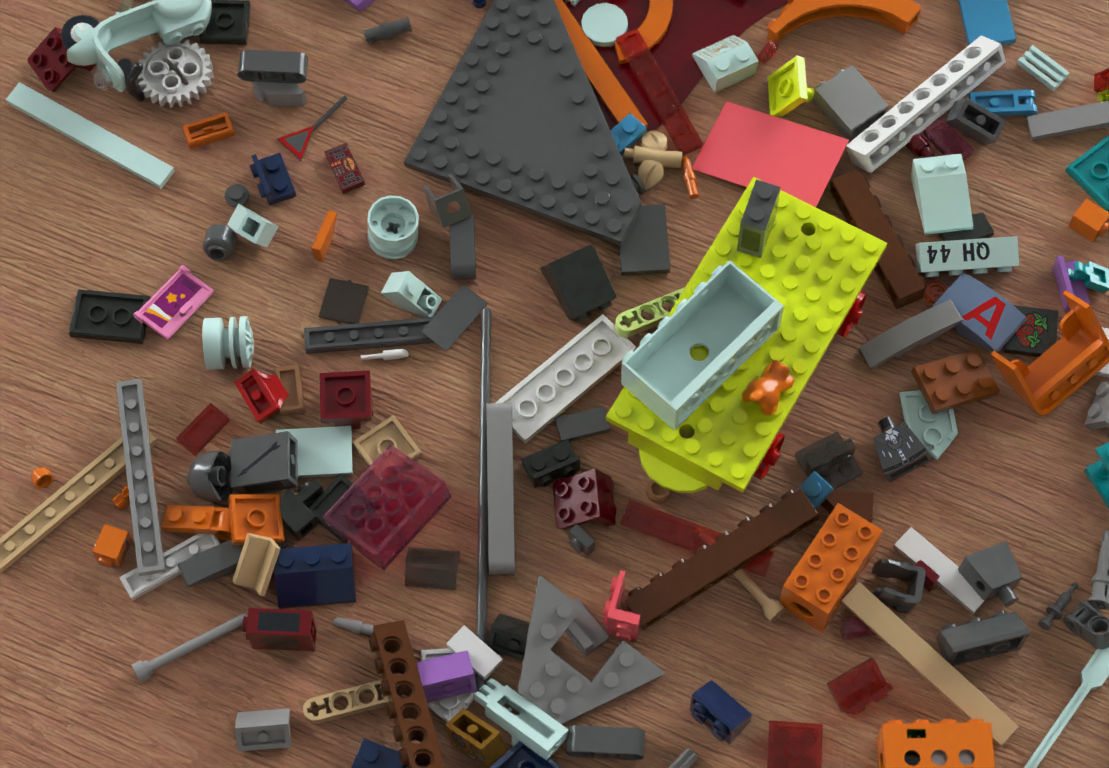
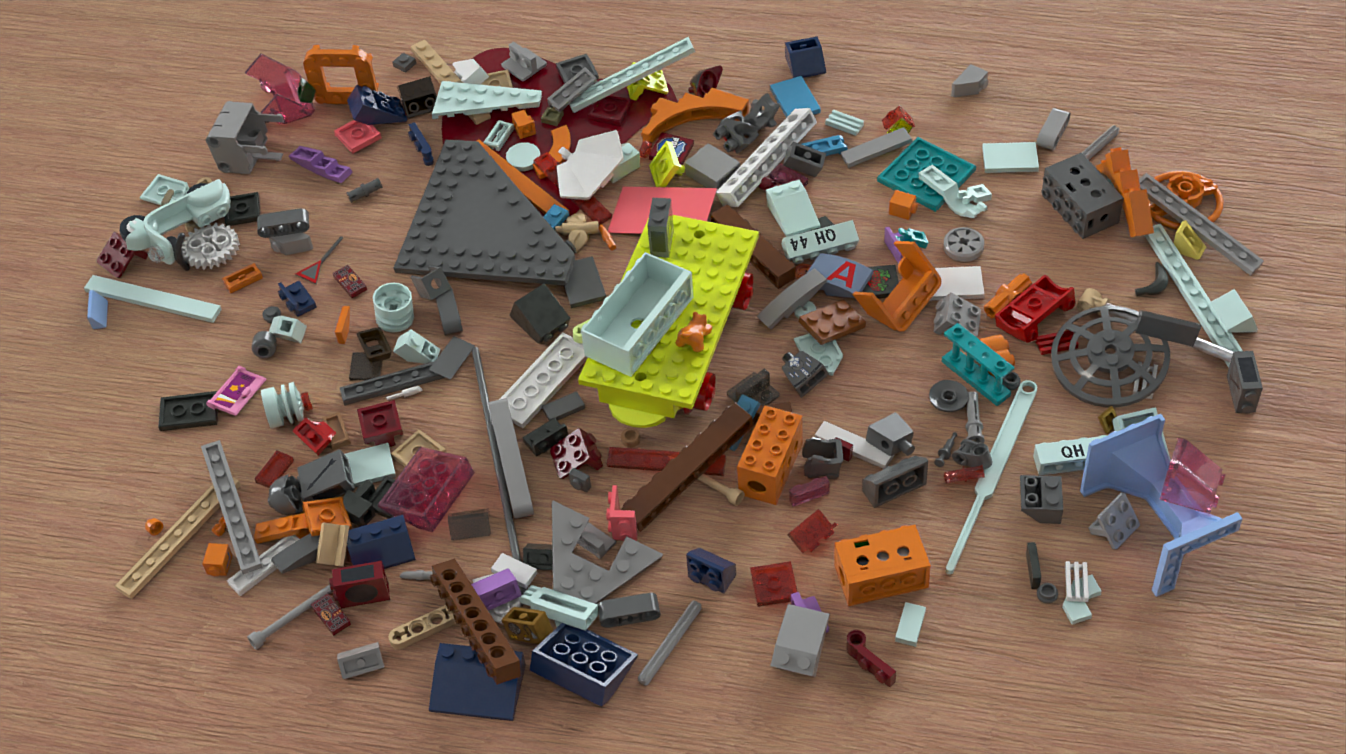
camera: 10 degrees left, 15 degrees down
(17, 138) = (97, 310): none -> light blue slope
(238, 656) = (330, 614): none -> tile
(259, 340) = (306, 401): none -> clear red tile
(369, 278) = (383, 346): none -> dark brown piece
(686, 68) = (589, 165): none -> white panel
(814, 52) = (681, 146): none -> tile
(927, 37) = (757, 119): none -> dark grey hips
(927, 662) = (854, 499): tan tile -> none
(930, 355) = (809, 306): none -> light aqua wheel
(1072, 650) = (964, 474): none -> clear red axle
(1087, 521) = (948, 390): none -> dark grey dish

